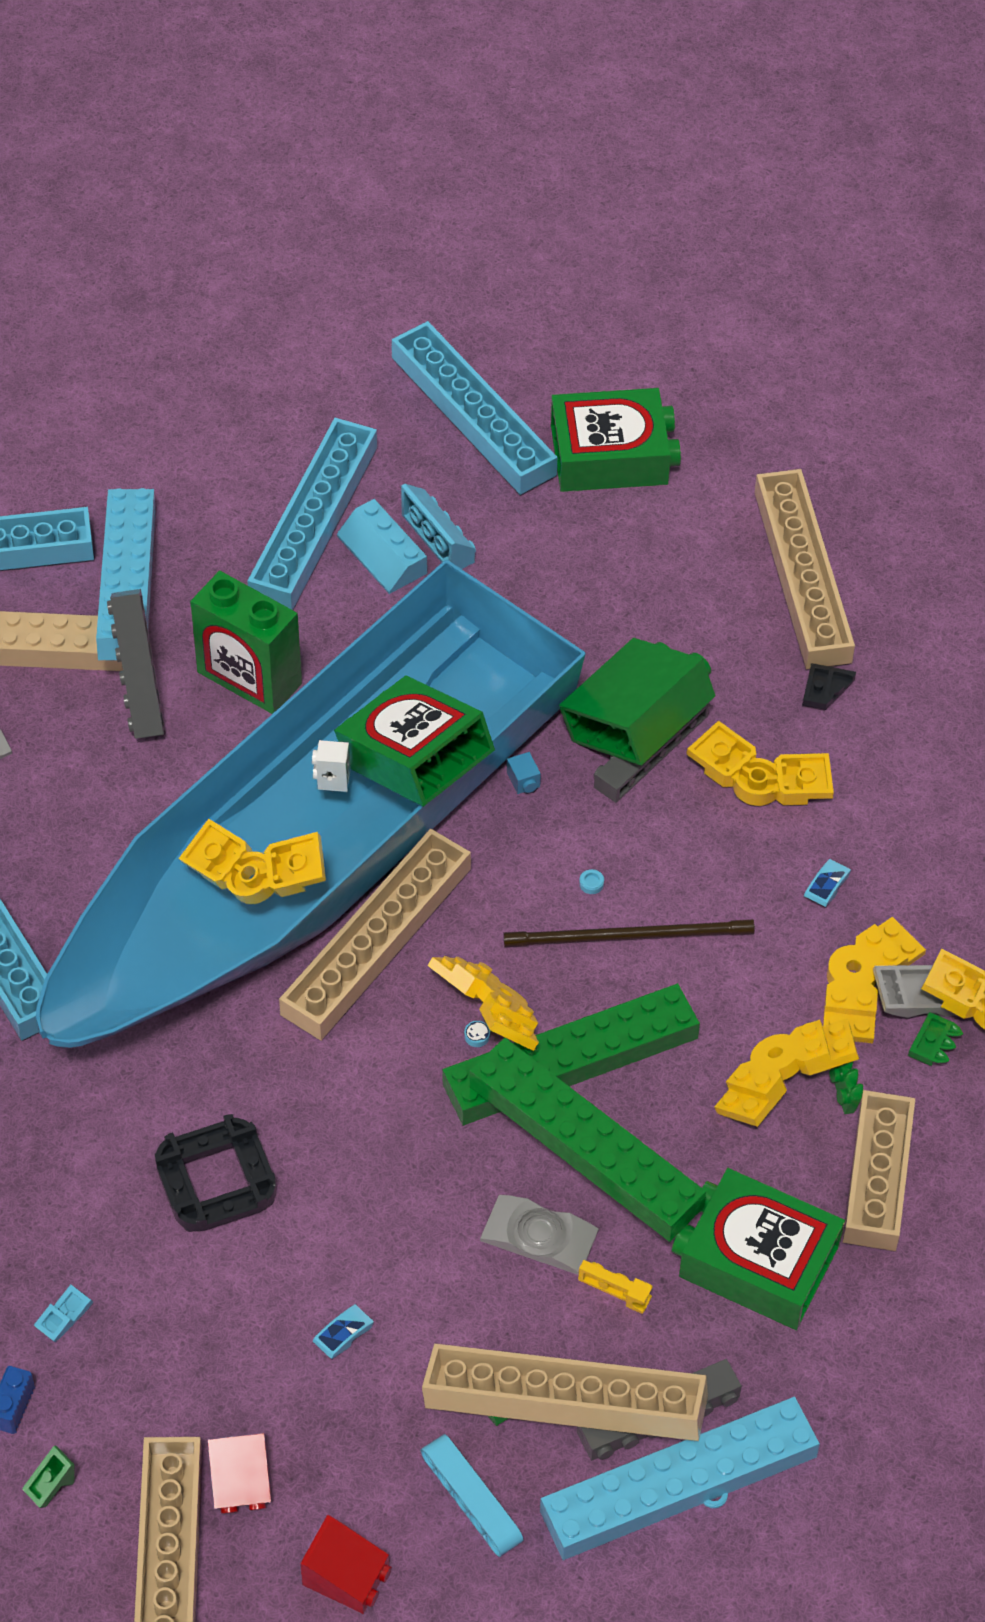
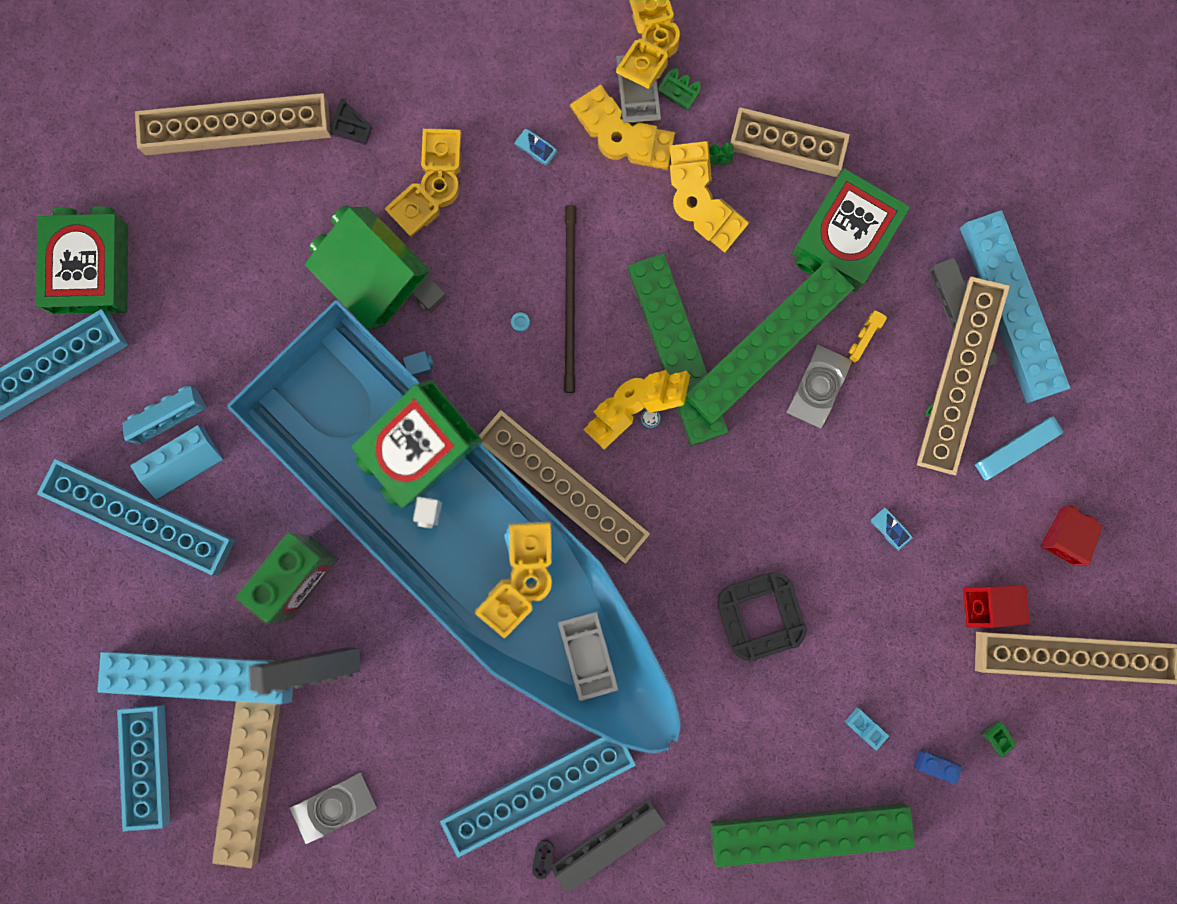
camera: 85 degrees left, 30 degrees up
(158, 951) = (588, 656): none -> light grey slope

